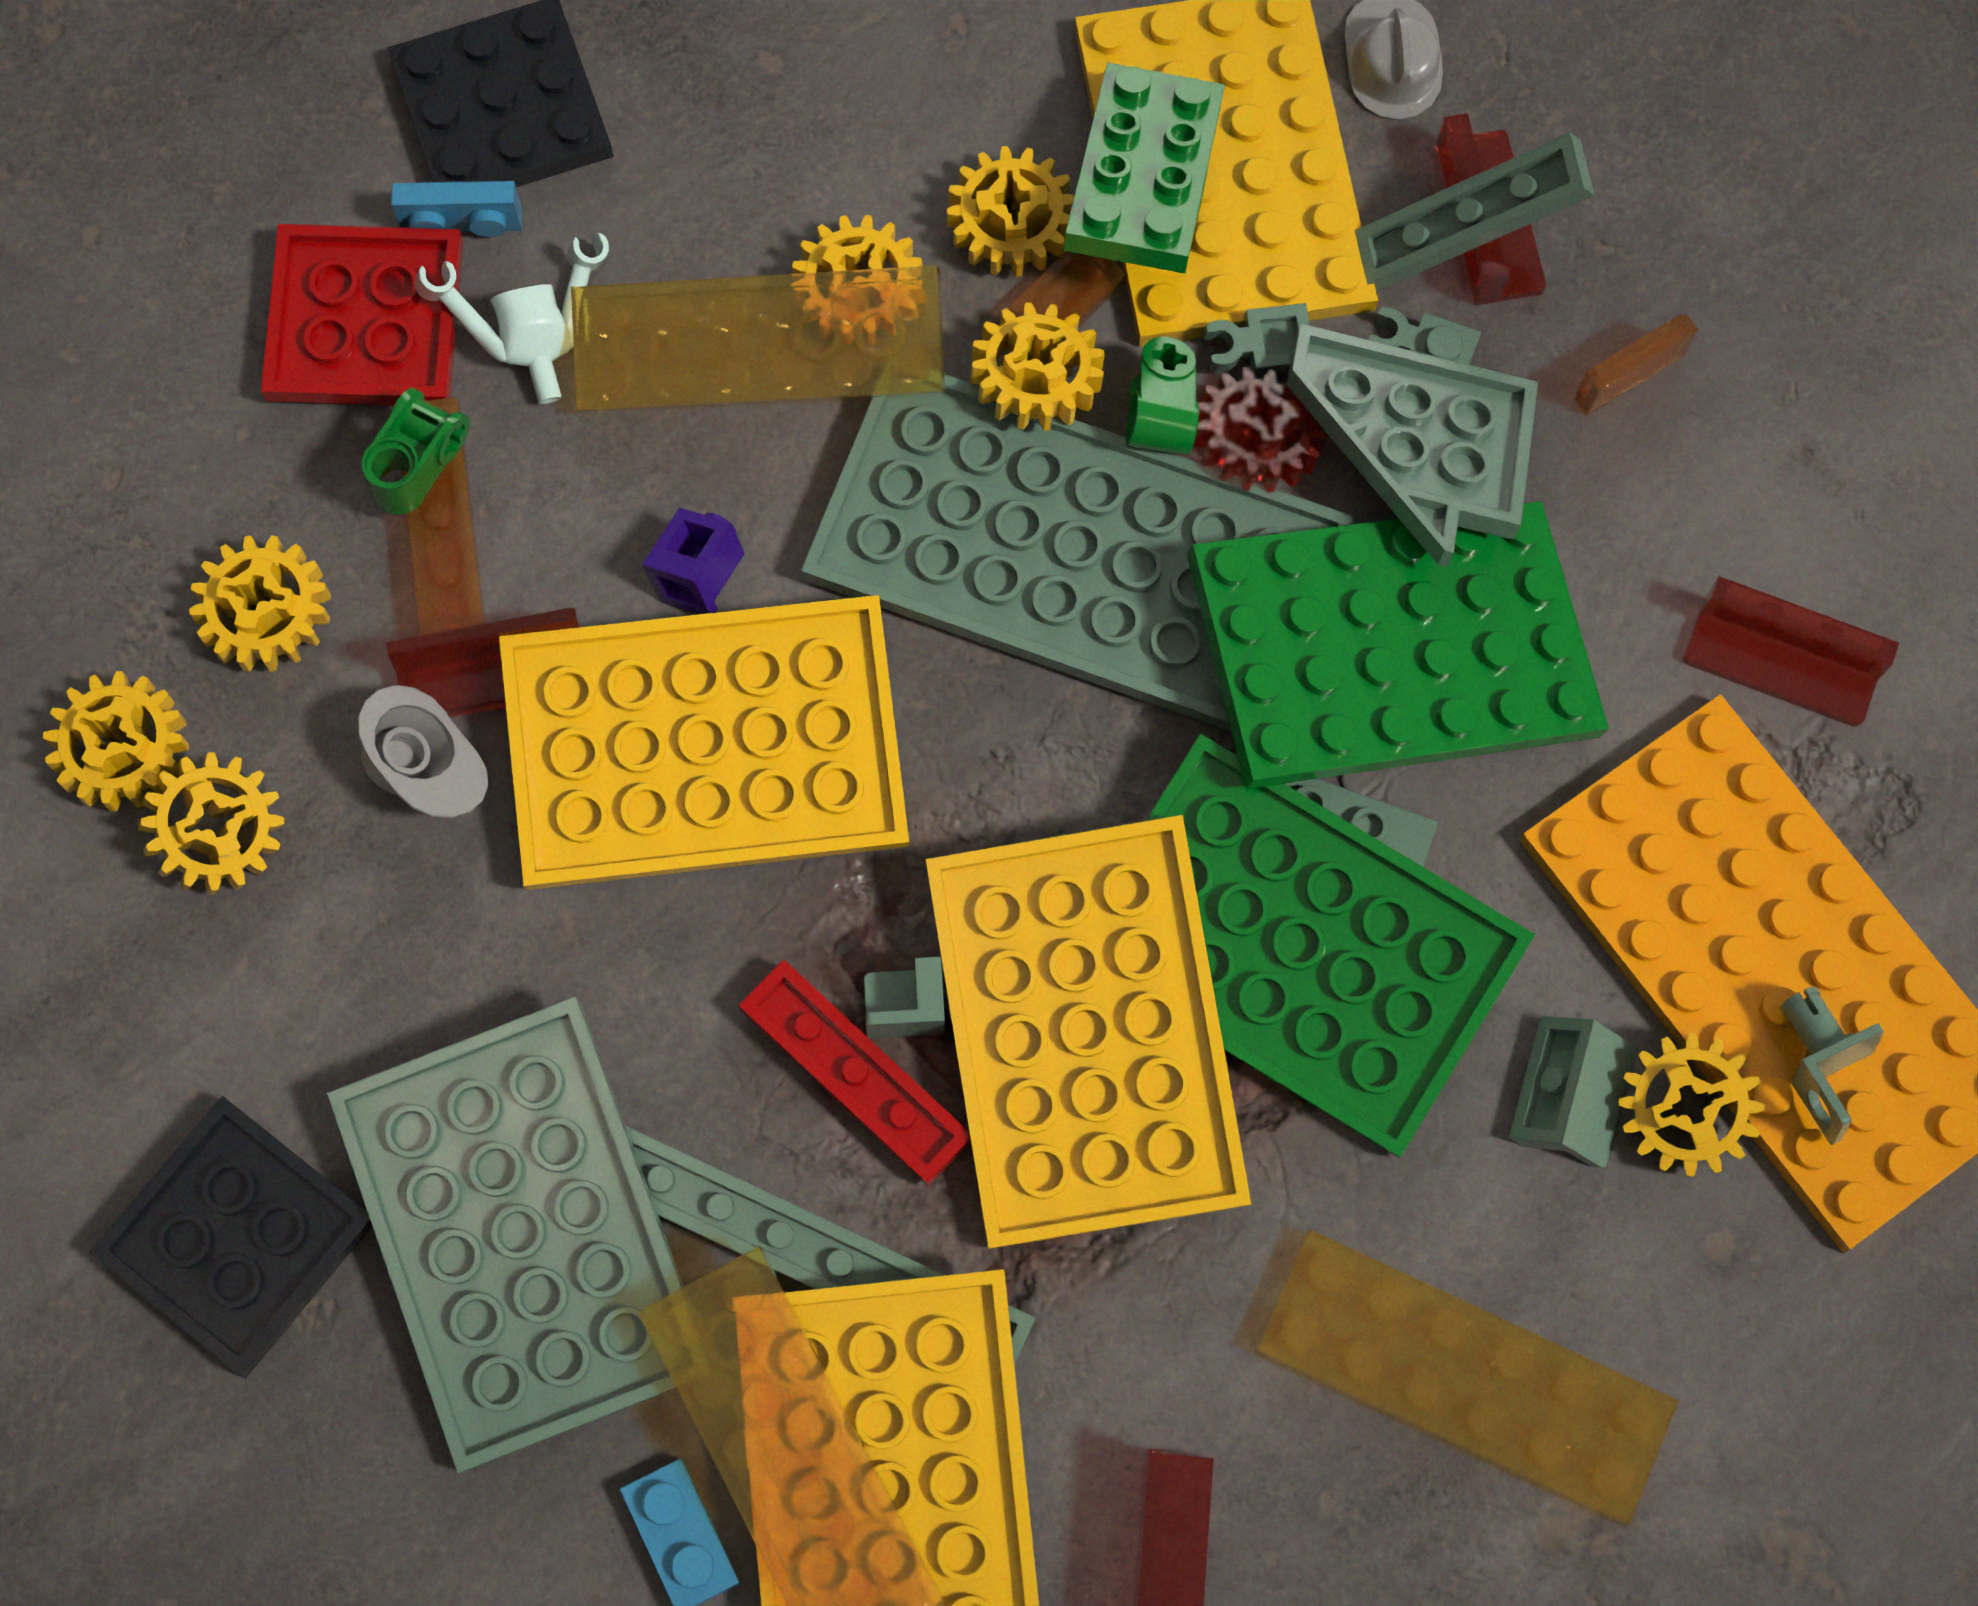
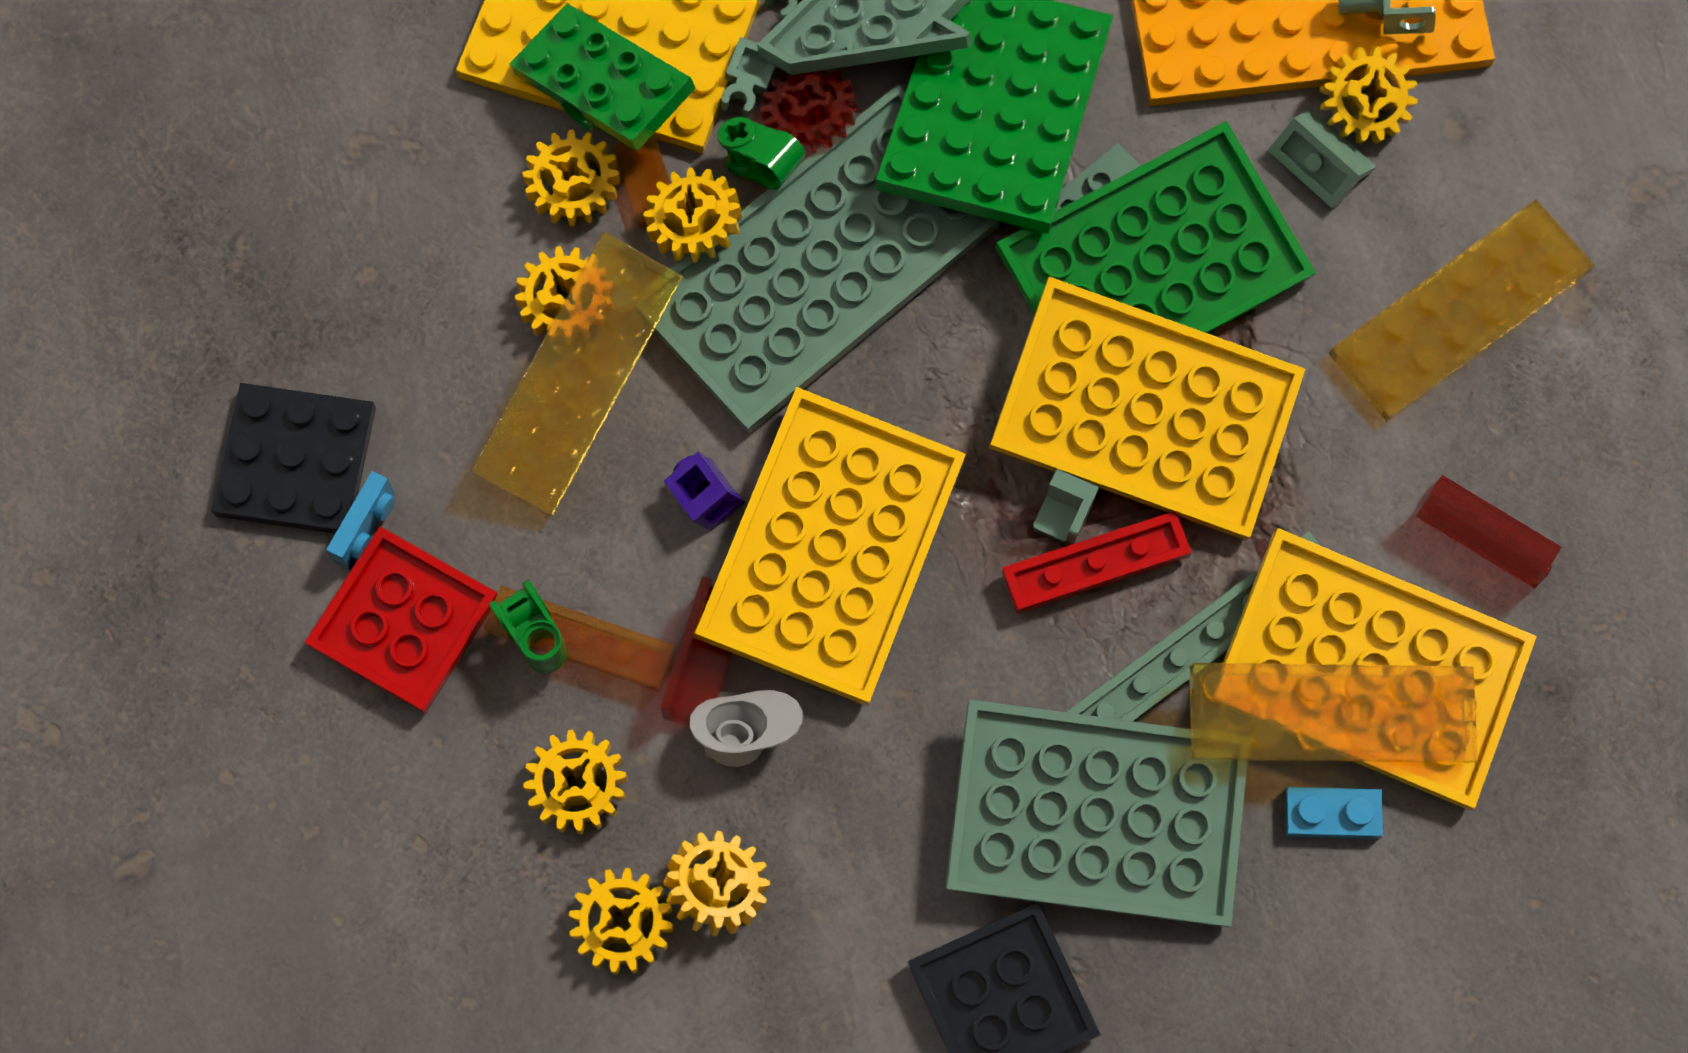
camera: 60 degrees left, 0 degrees up
(528, 318) = (475, 512): light aqua piece -> none

